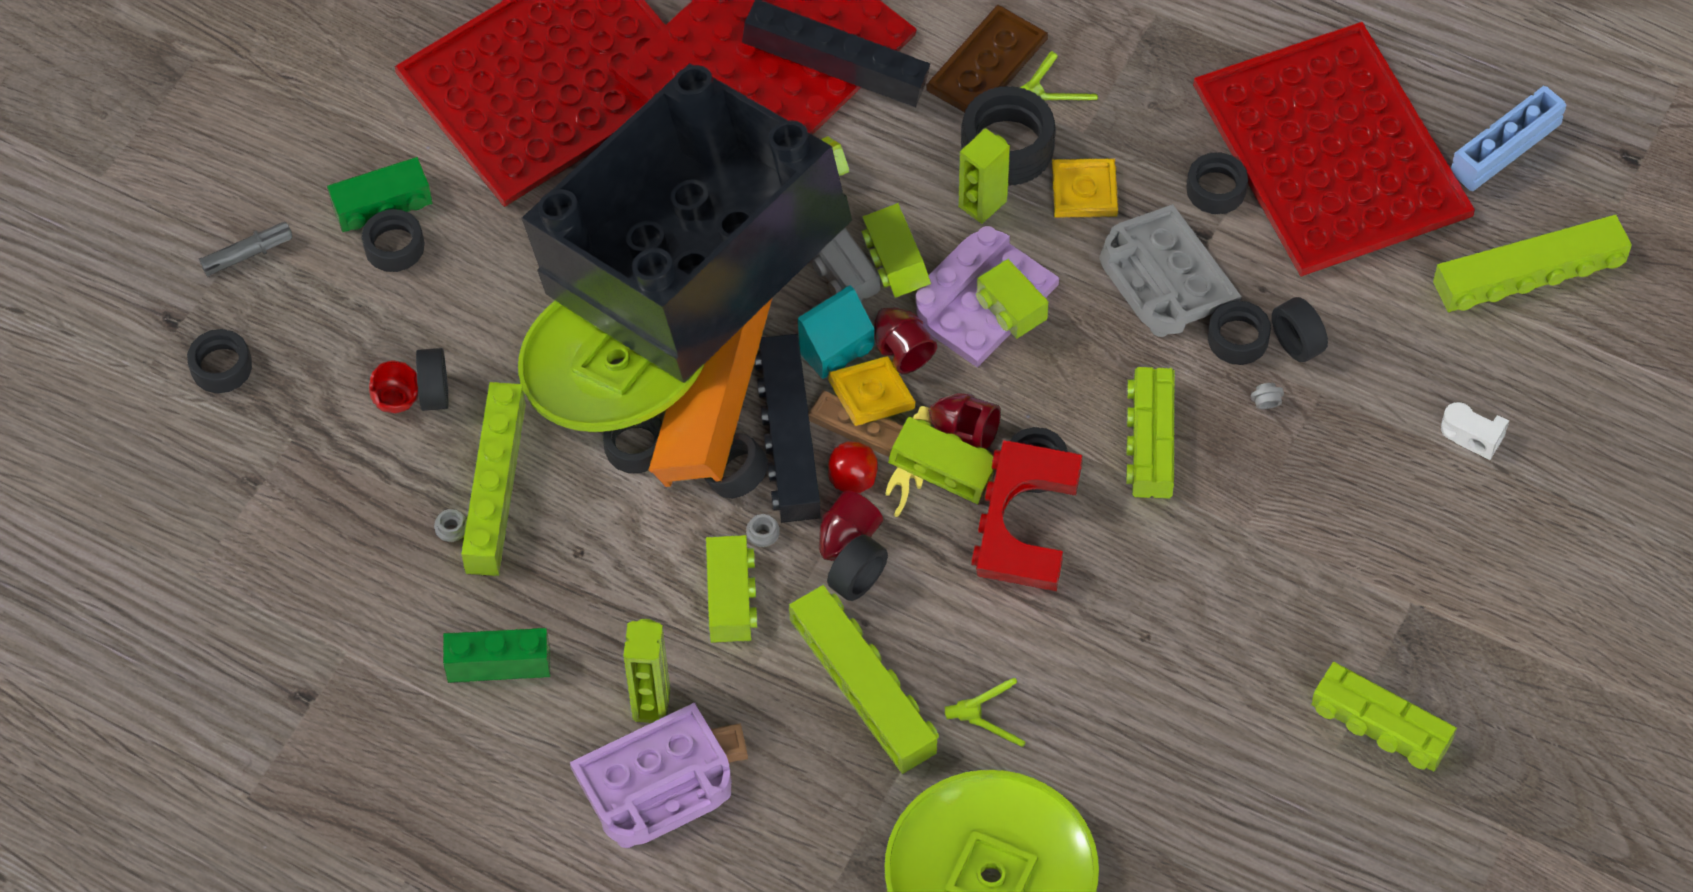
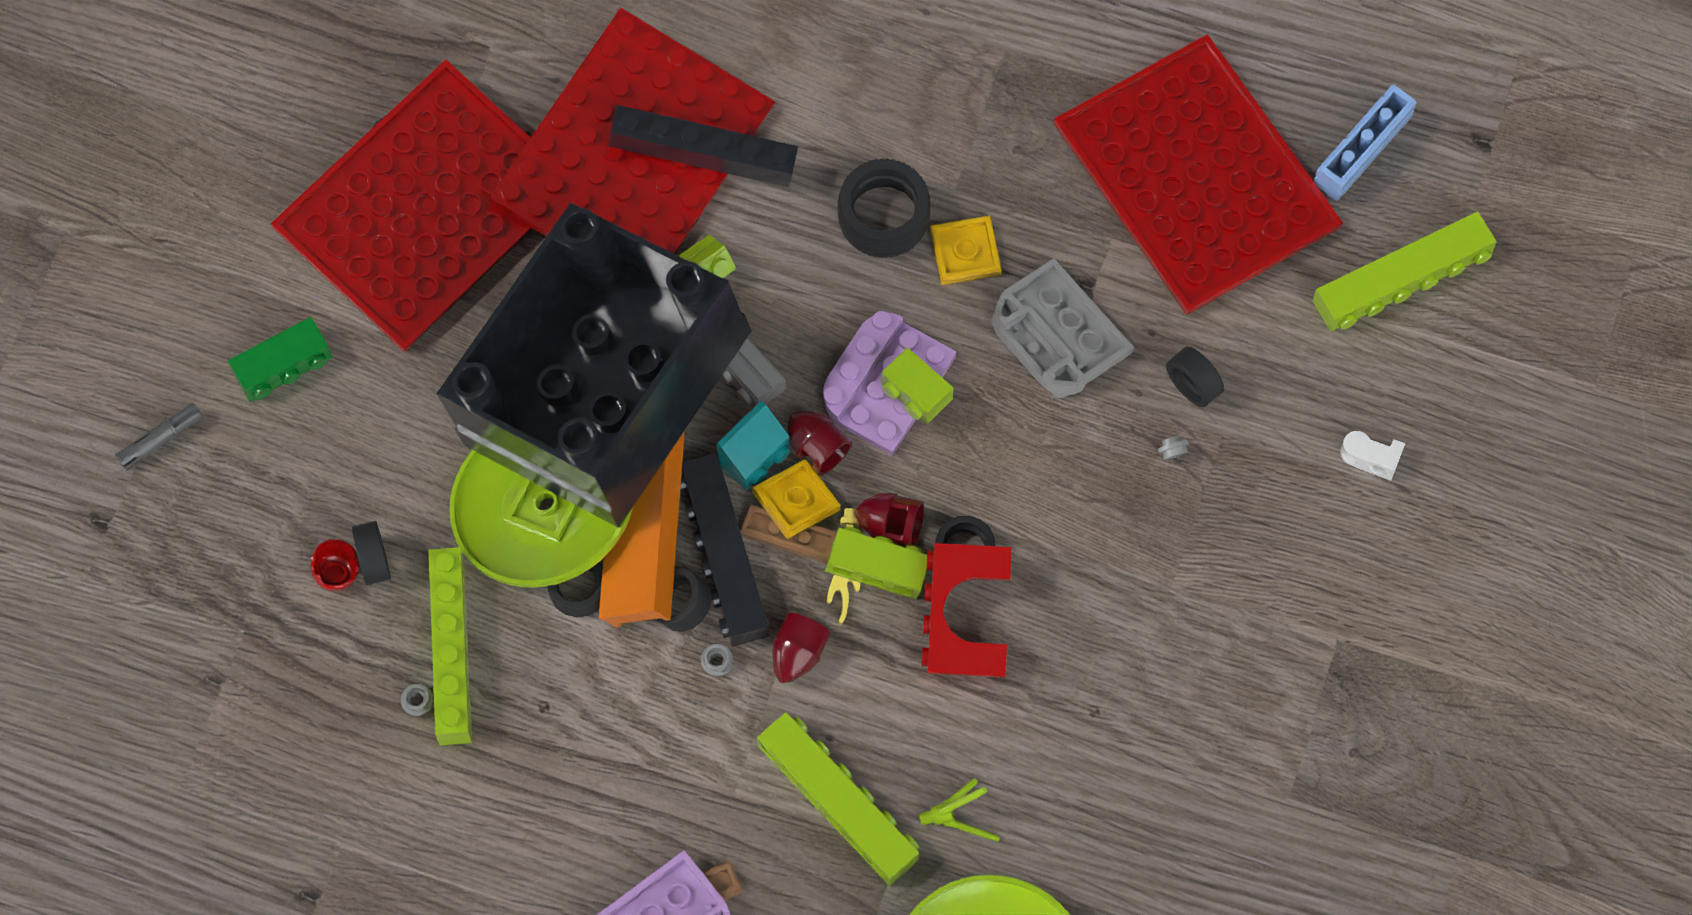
camera: 10 degrees left, 10 degrees up
(213, 341) = (145, 541): black tyre -> none
(387, 221) = (299, 384): black tyre -> none
(496, 655) = (487, 829): green brick -> none
(646, 670) = (637, 833): lime brick -> none
(730, 589) = (697, 726): lime brick -> none
(852, 467) = (791, 580): red hair -> none
(857, 567) = (815, 688): black tyre -> none
(894, 251) = (795, 350): lime brick -> none
(984, 175) = (869, 260): lime brick -> none
(987, 58) = (849, 124): reddish brown tile -> none
(1035, 86) = (901, 152): lime plant -> none
(1152, 432) = (1071, 503): lime brick -> none
(1217, 163) = (1088, 249): black tyre -> none
(1238, 353) = (1143, 363): black tyre -> none
(1383, 717) = (1329, 763): lime brick -> none

